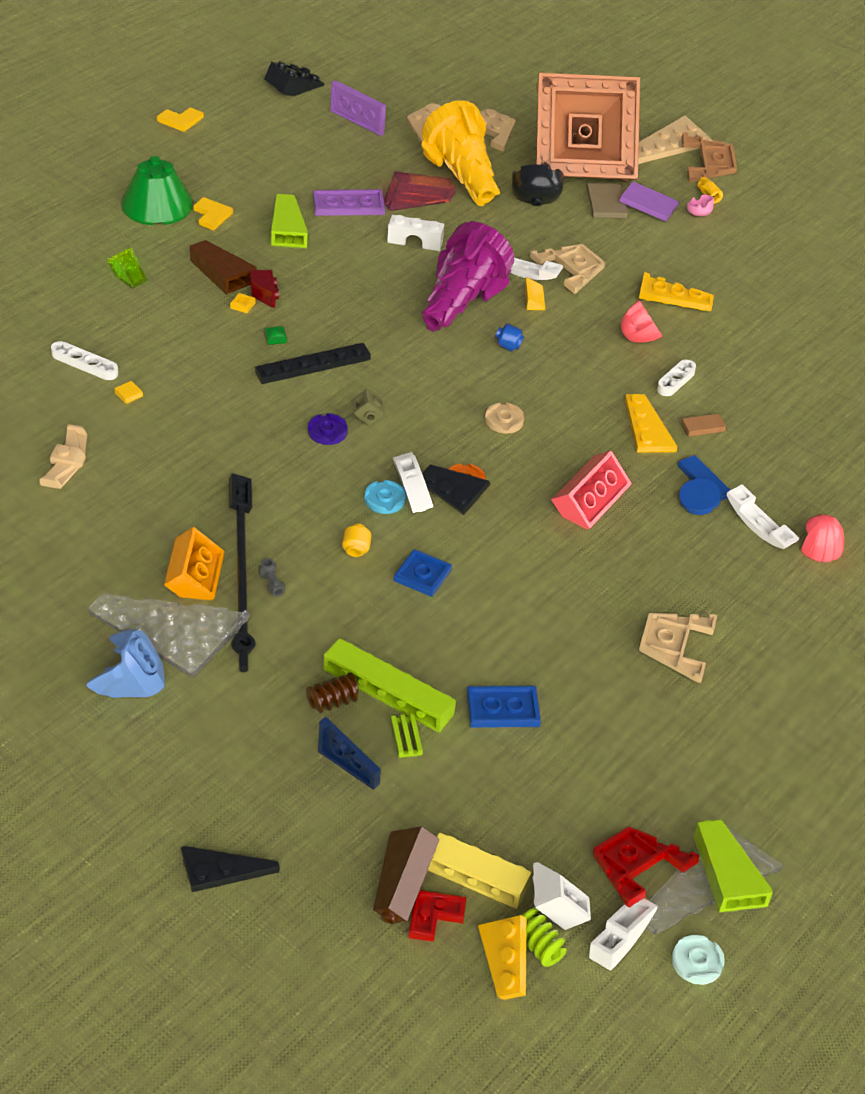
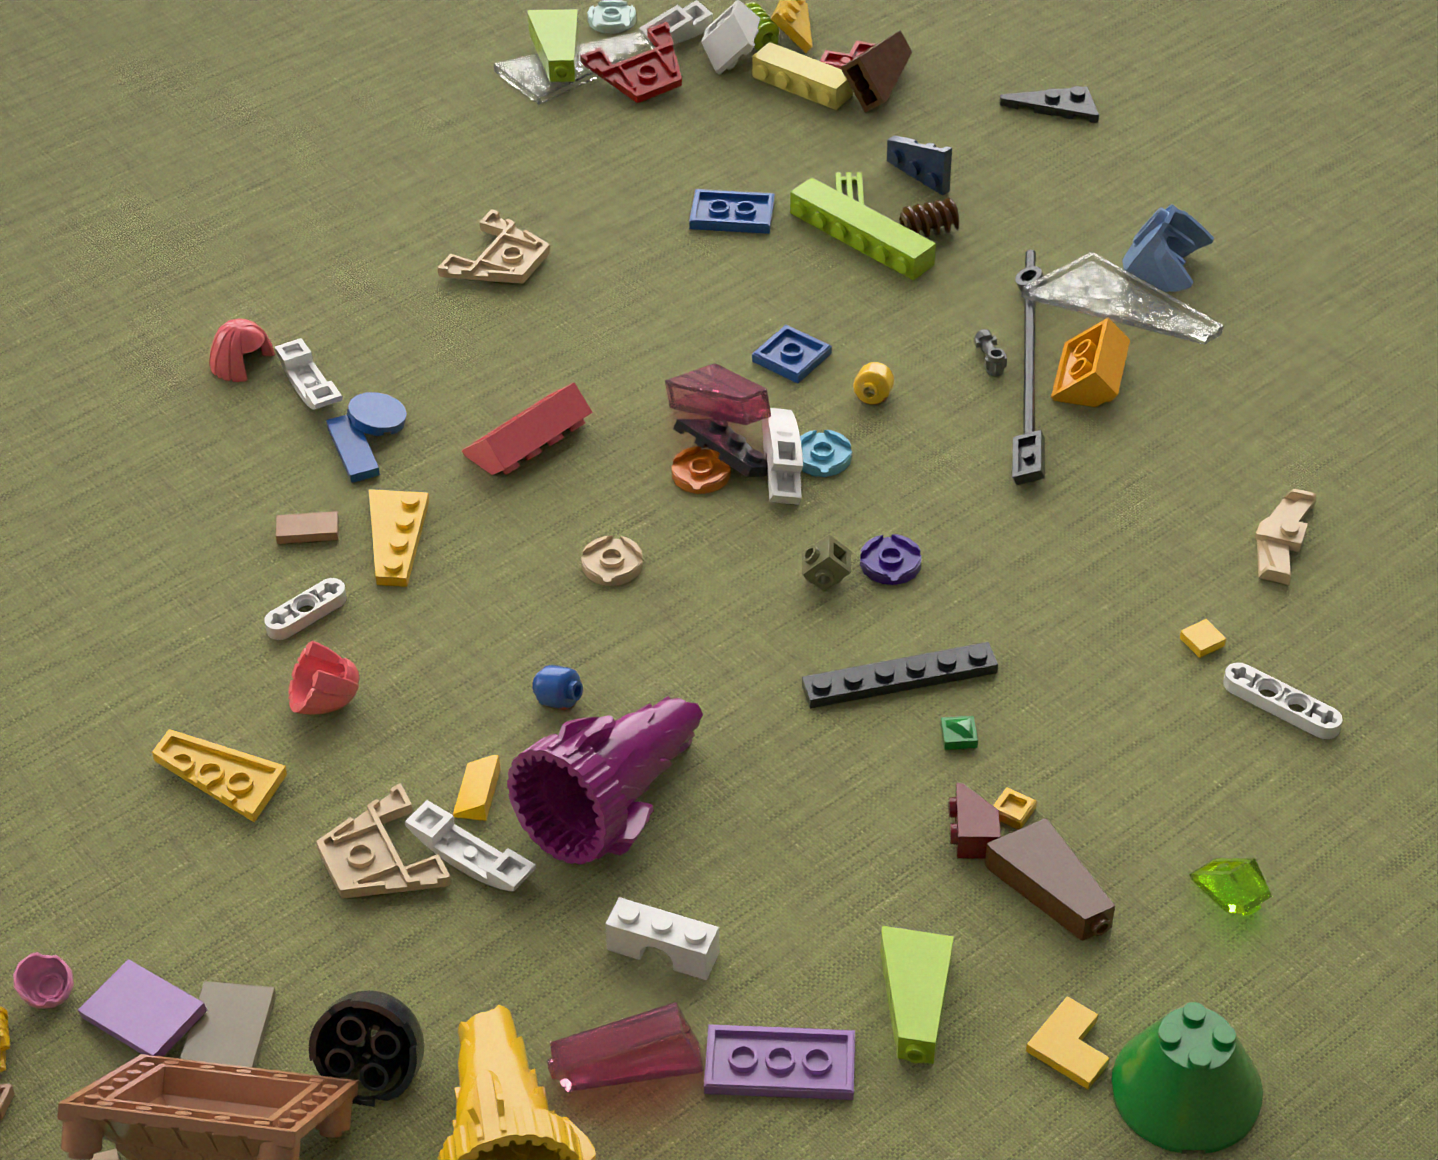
camera: 165 degrees left, 0 degrees up
(463, 505) = (718, 395): none -> clear pink slope

